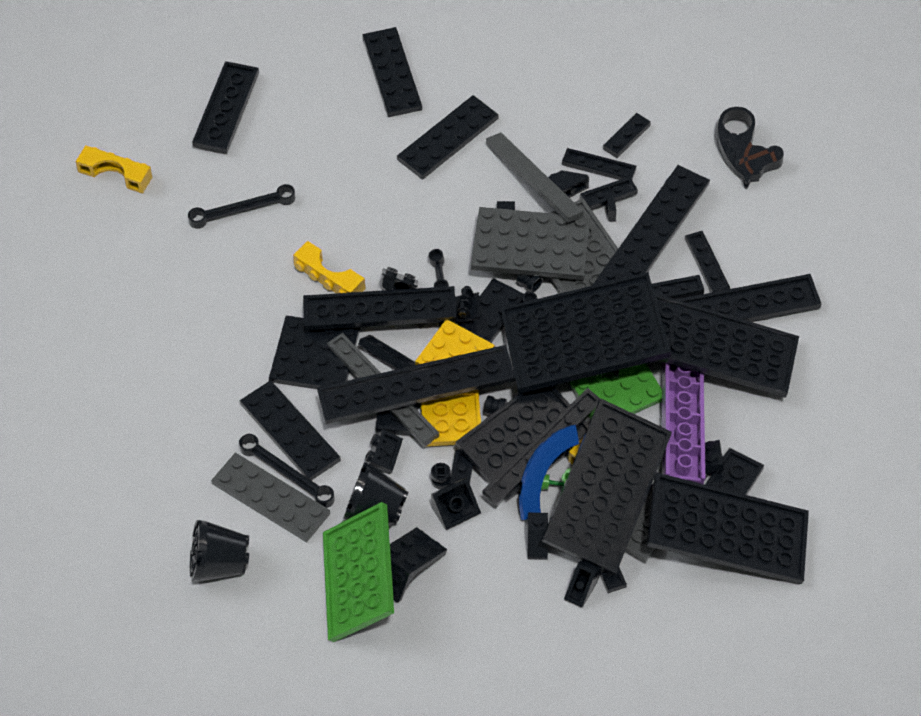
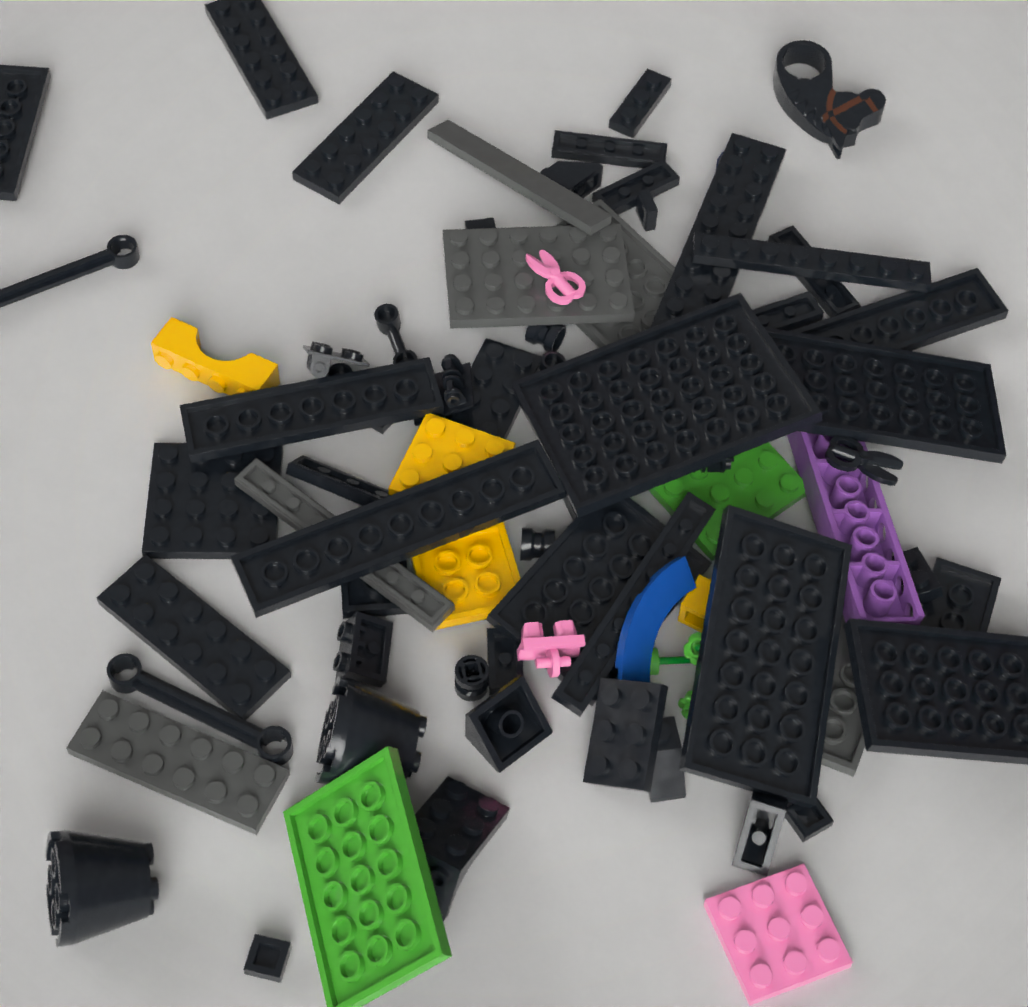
camera: 15 degrees left, 0 degrees up
(301, 605) = (267, 958): none -> black plate
(486, 466) = (550, 651): none -> bright pink hips
(518, 518) = (625, 734): none -> black plate
(540, 247) = (550, 270): none -> bright pink piece
(579, 637) = (777, 934): none -> bright pink plate
(699, 385) = (866, 461): none -> black piece
(703, 257) = (811, 262): none -> black plate

